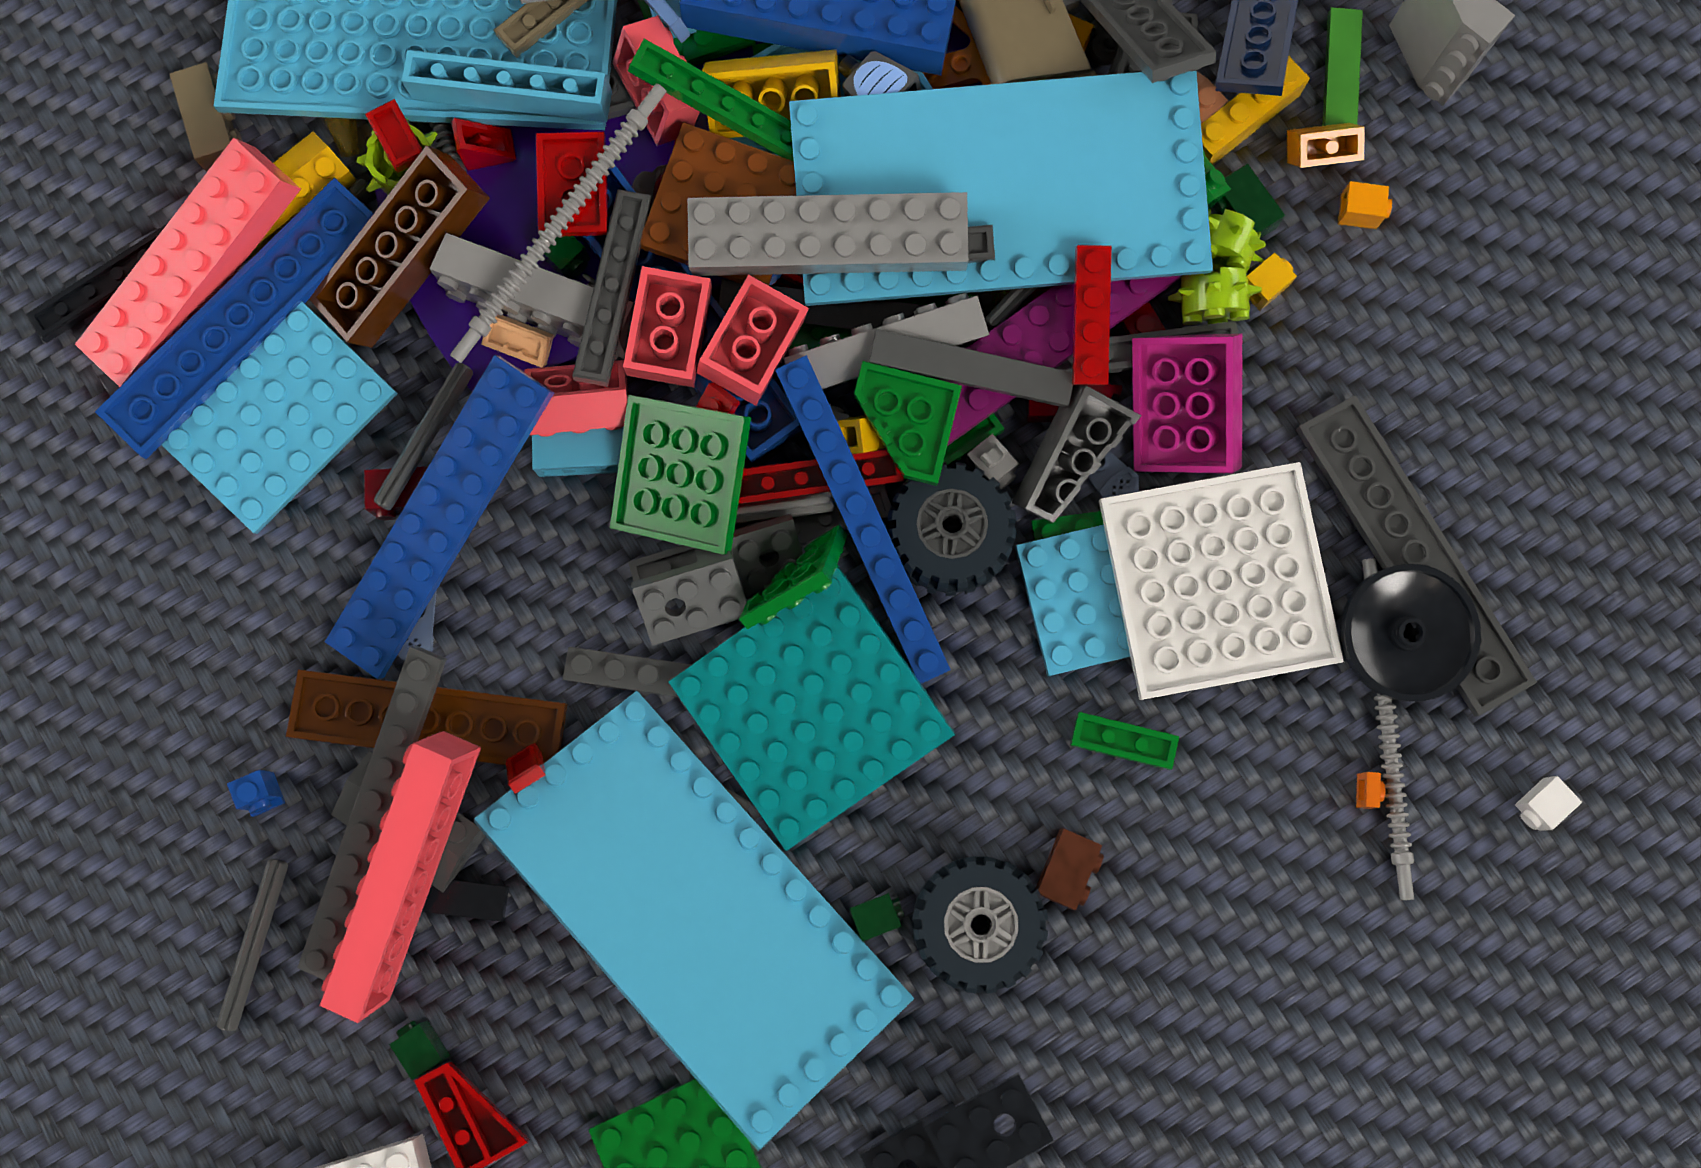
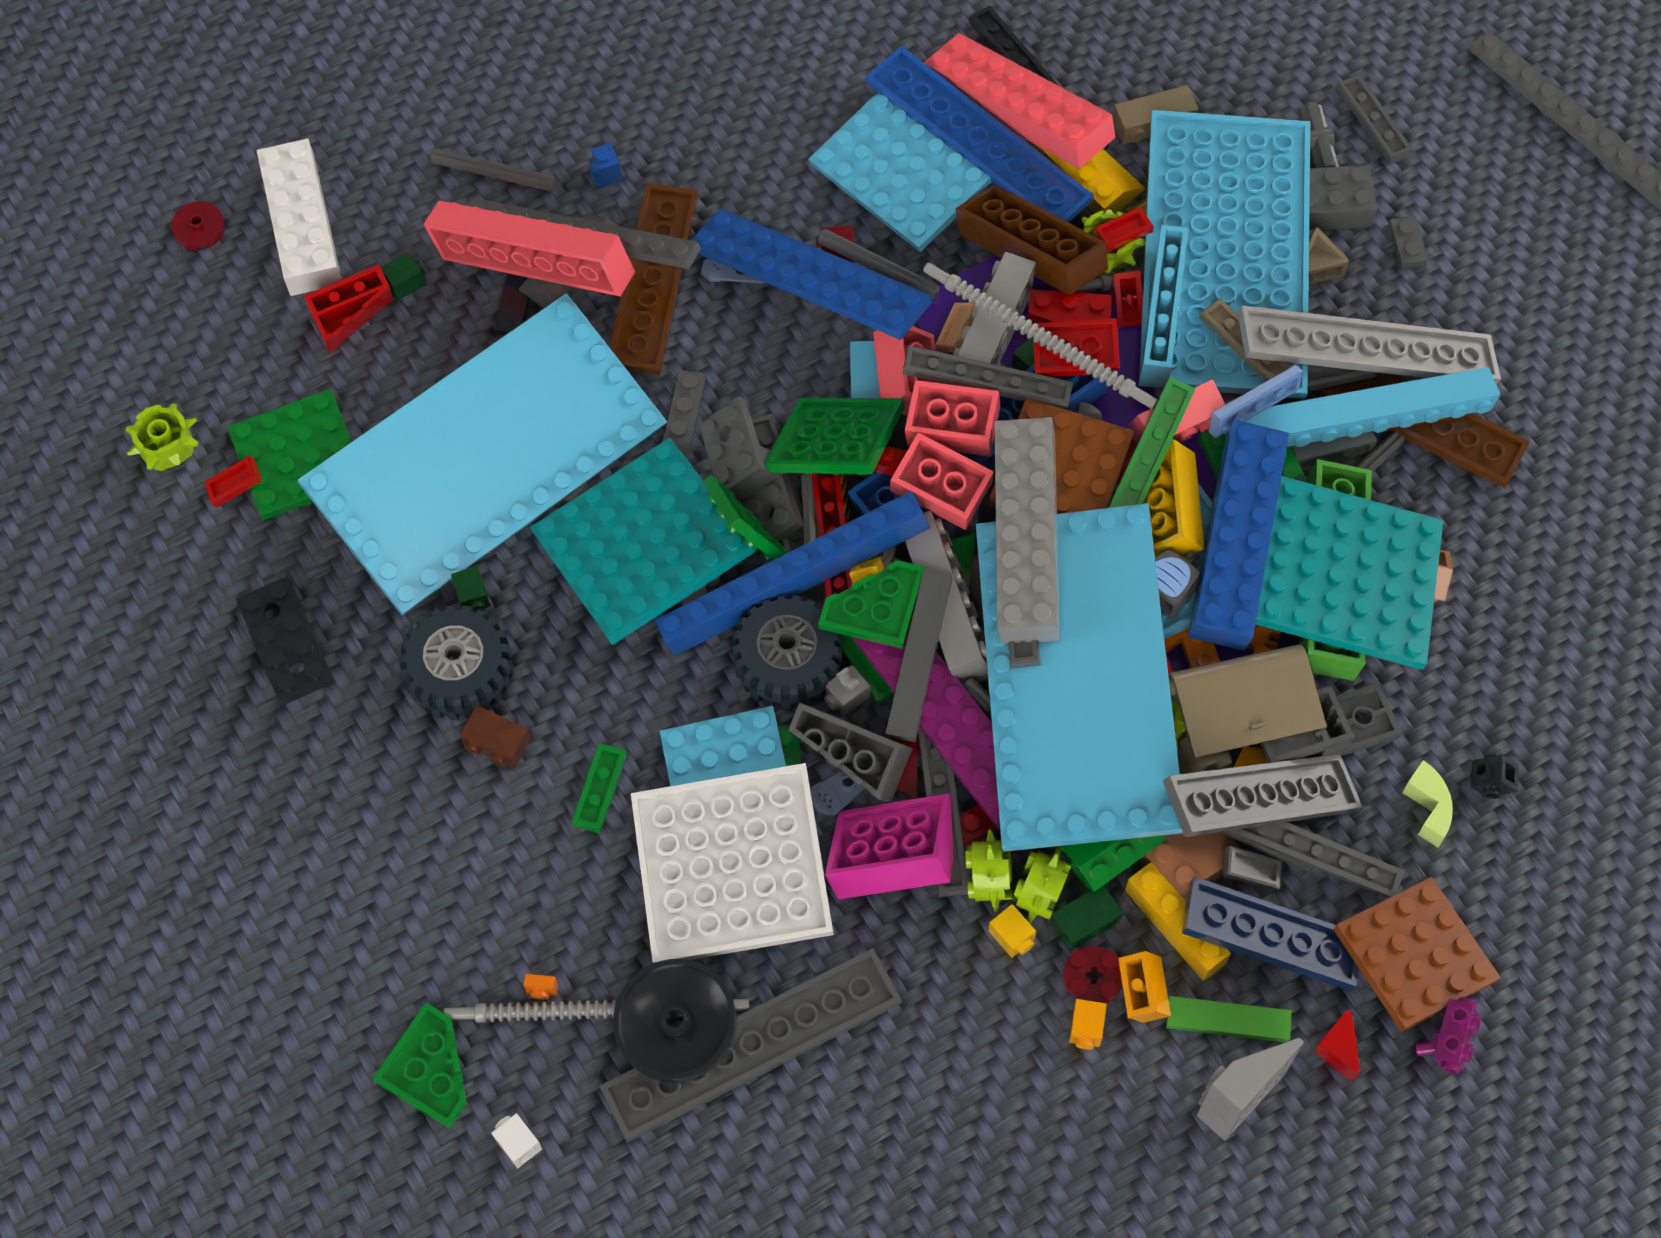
camera: 90 degrees right, 15 degrees down
(512, 205) = (1059, 307): none -> red wedge
(525, 768) = (605, 333): red tile -> none
(1091, 315) = (960, 744): red plate -> none
(1318, 187) = (1097, 959): none -> dark red plate
(1473, 913) = (427, 1068): none -> green plate

